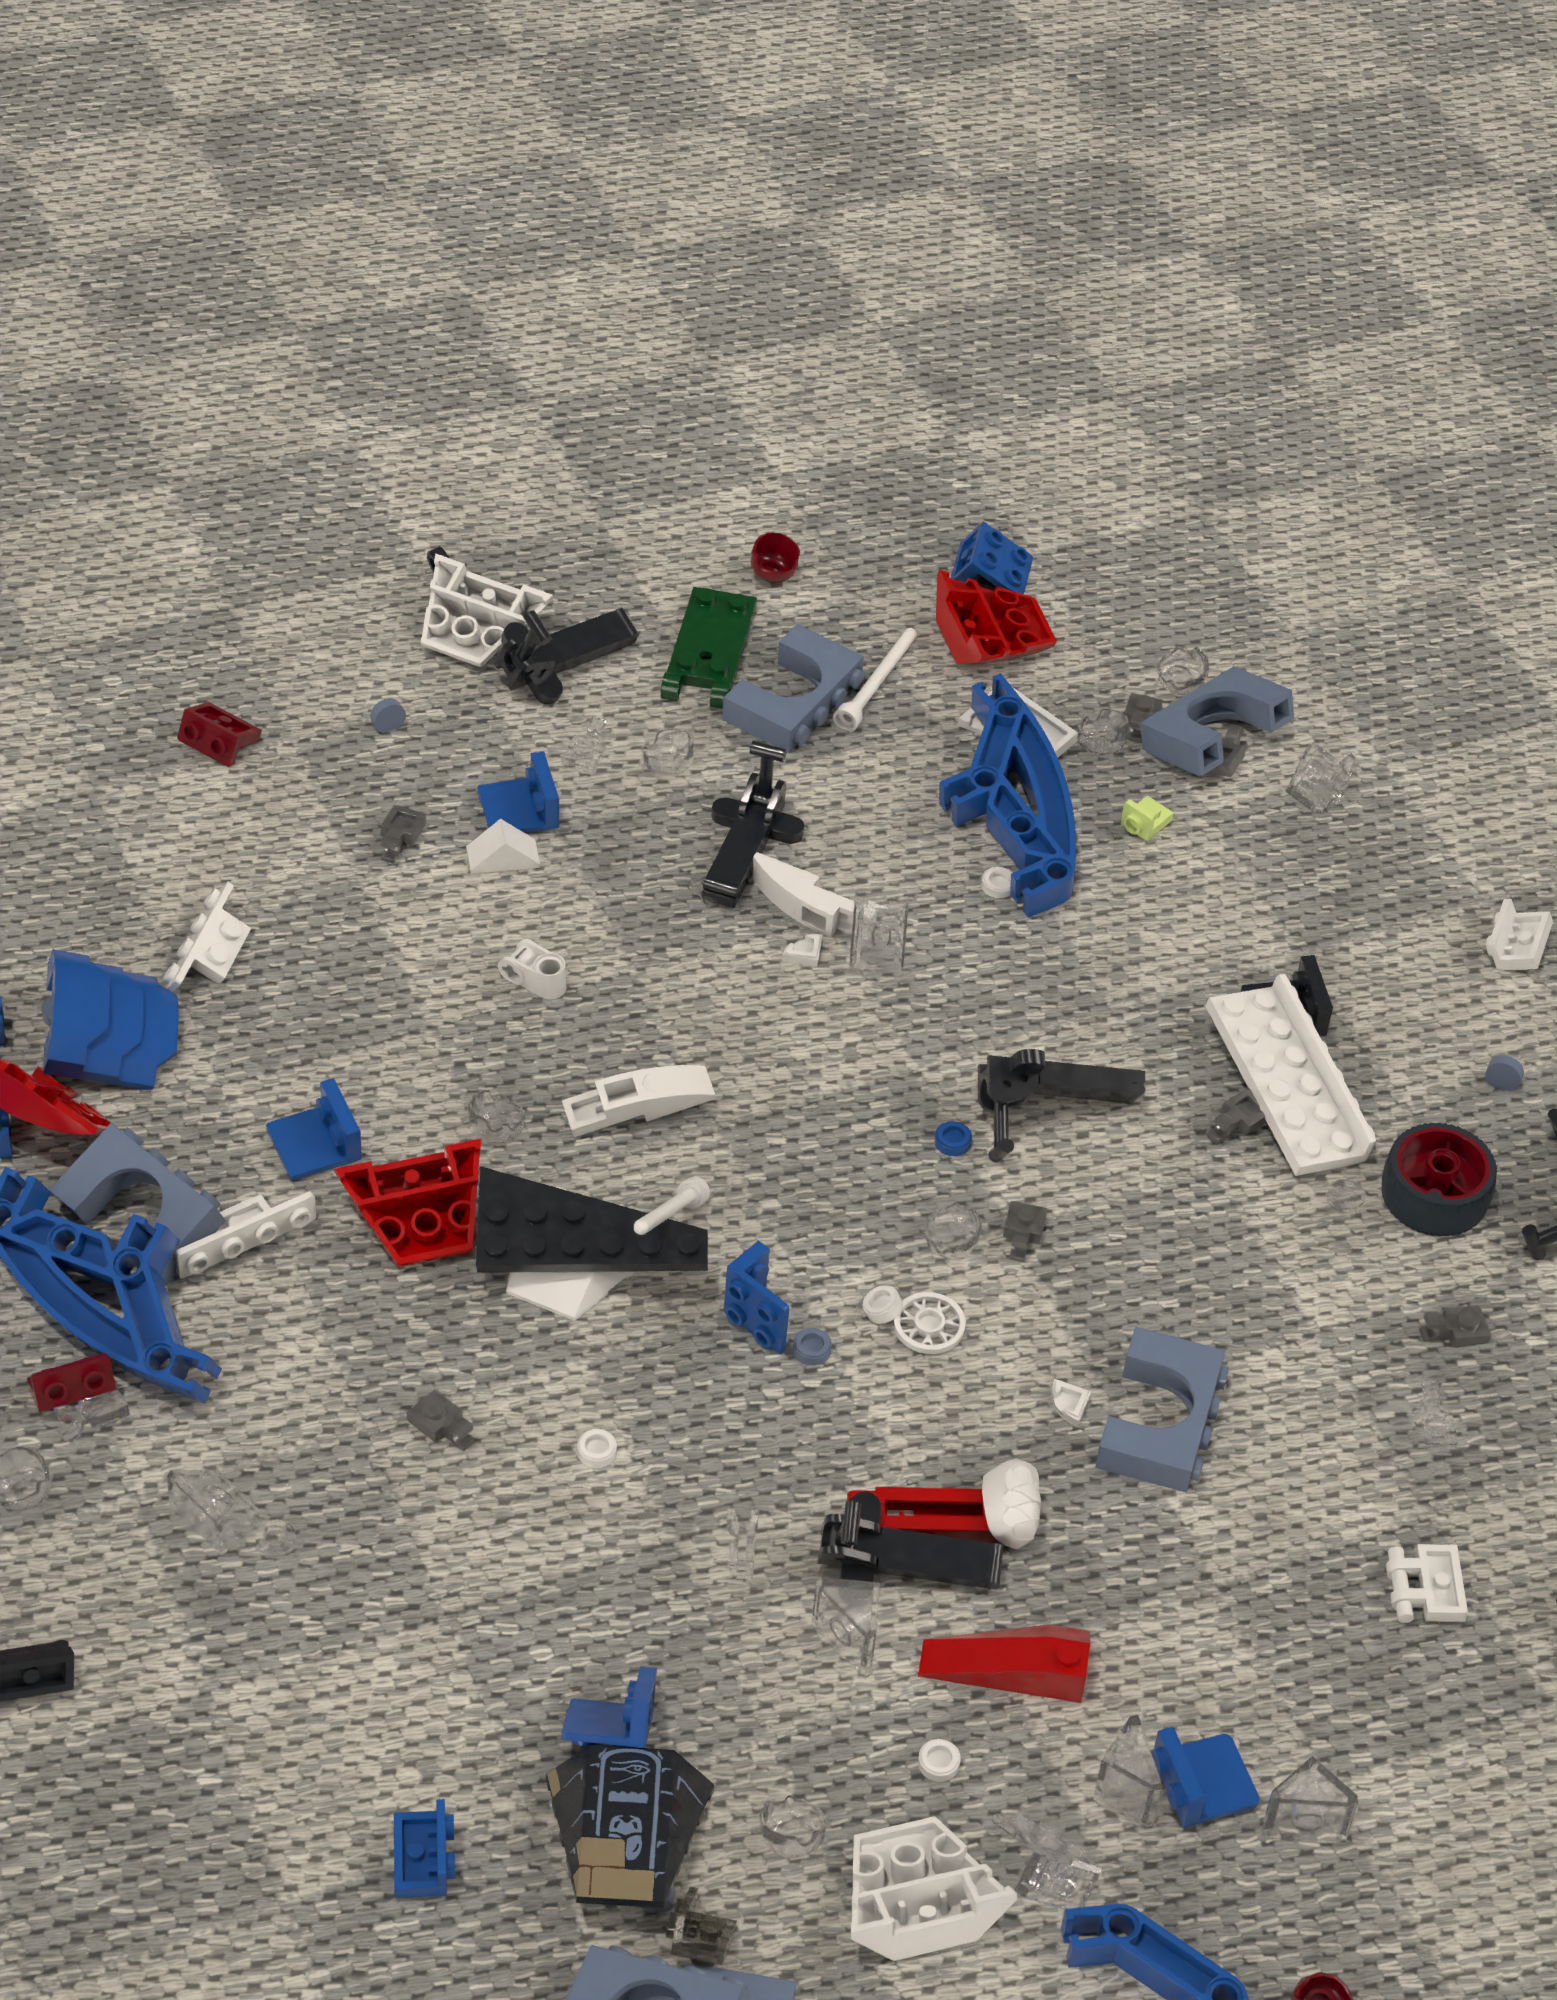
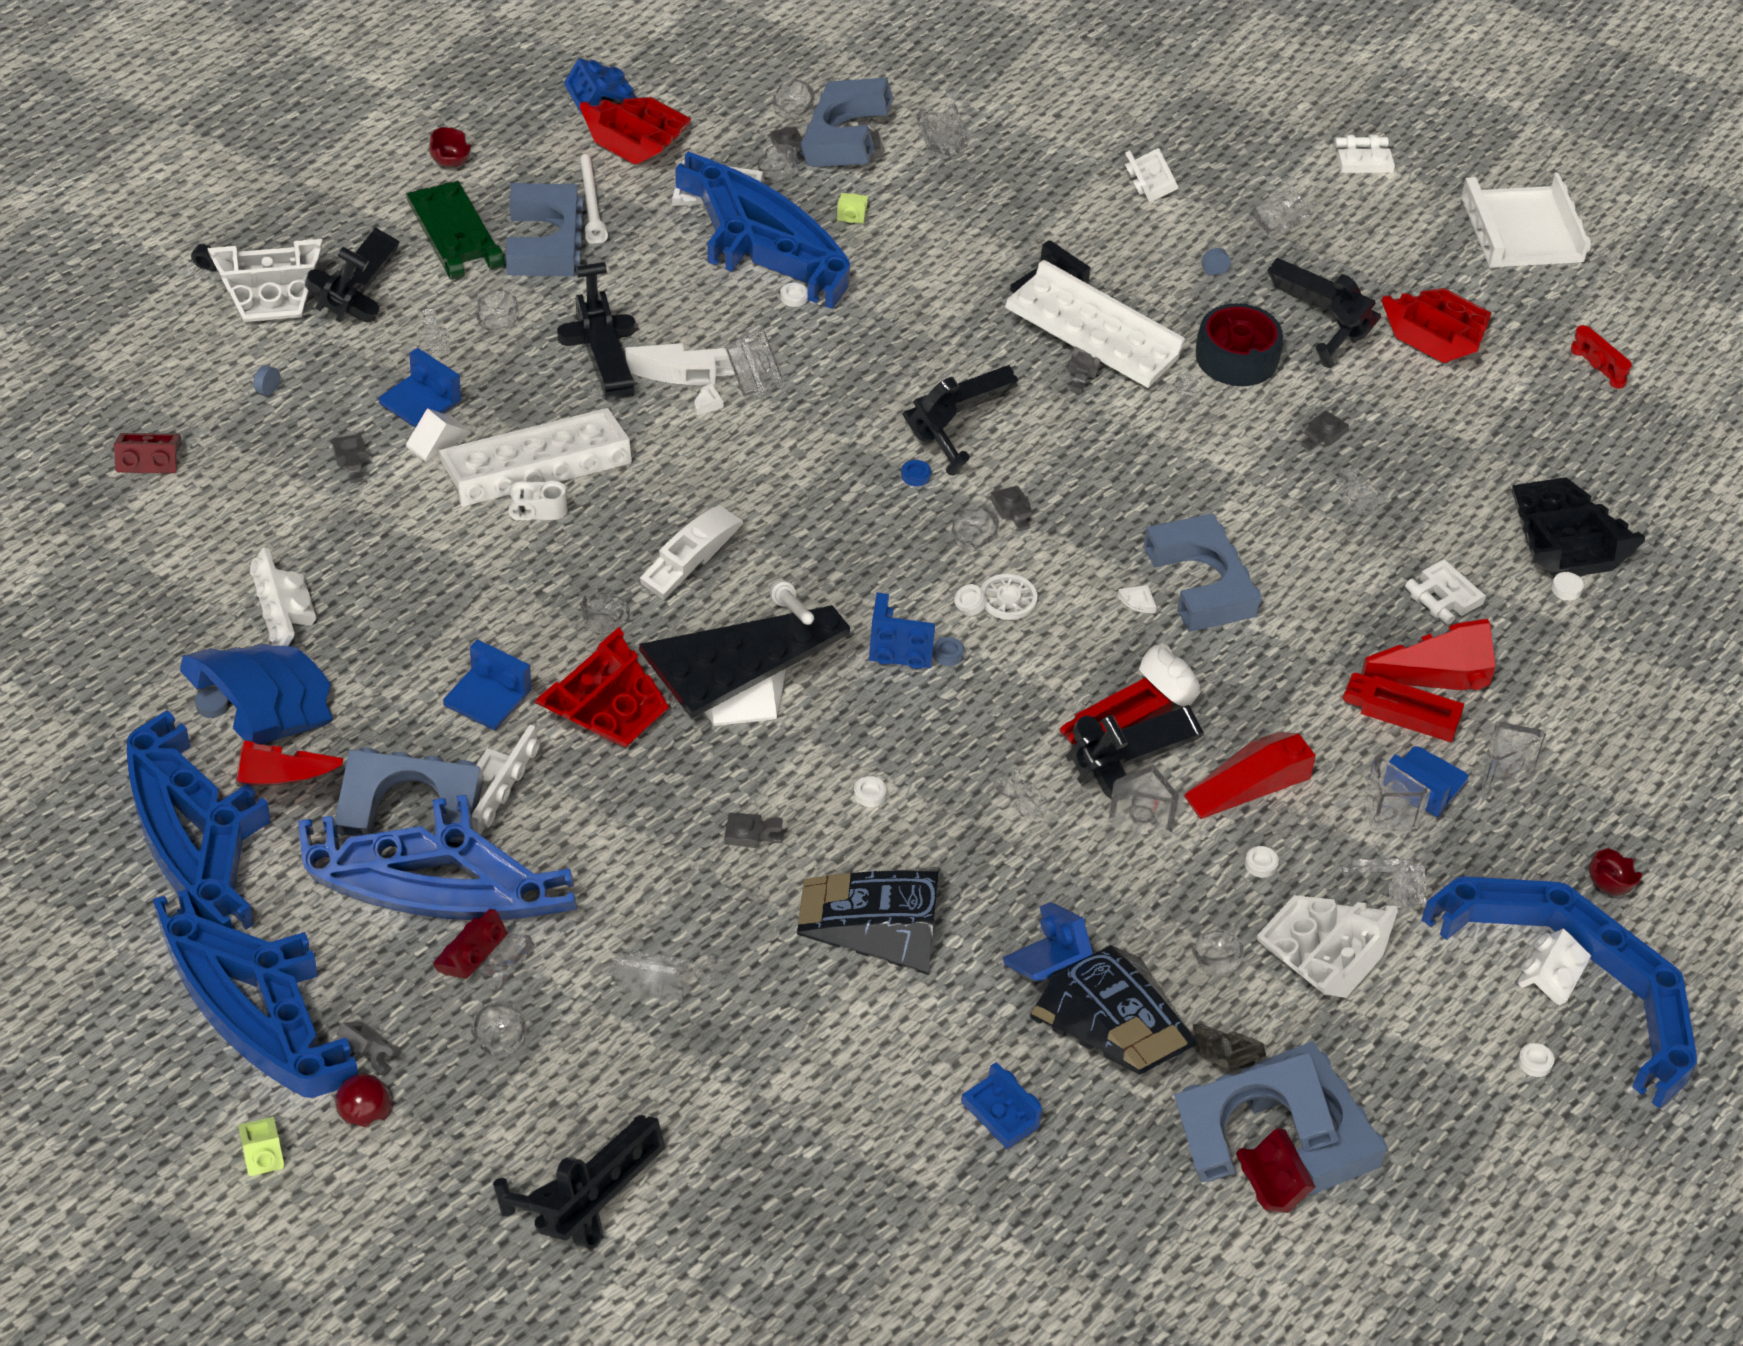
camera: 35 degrees left, 0 degrees up
(485, 1576) = (874, 913): none -> wedge
(576, 922) = (536, 454): none -> white bracket
(1271, 1700) = (1414, 707): none -> red hinge
(1351, 1661) = (1448, 661): none -> wedge

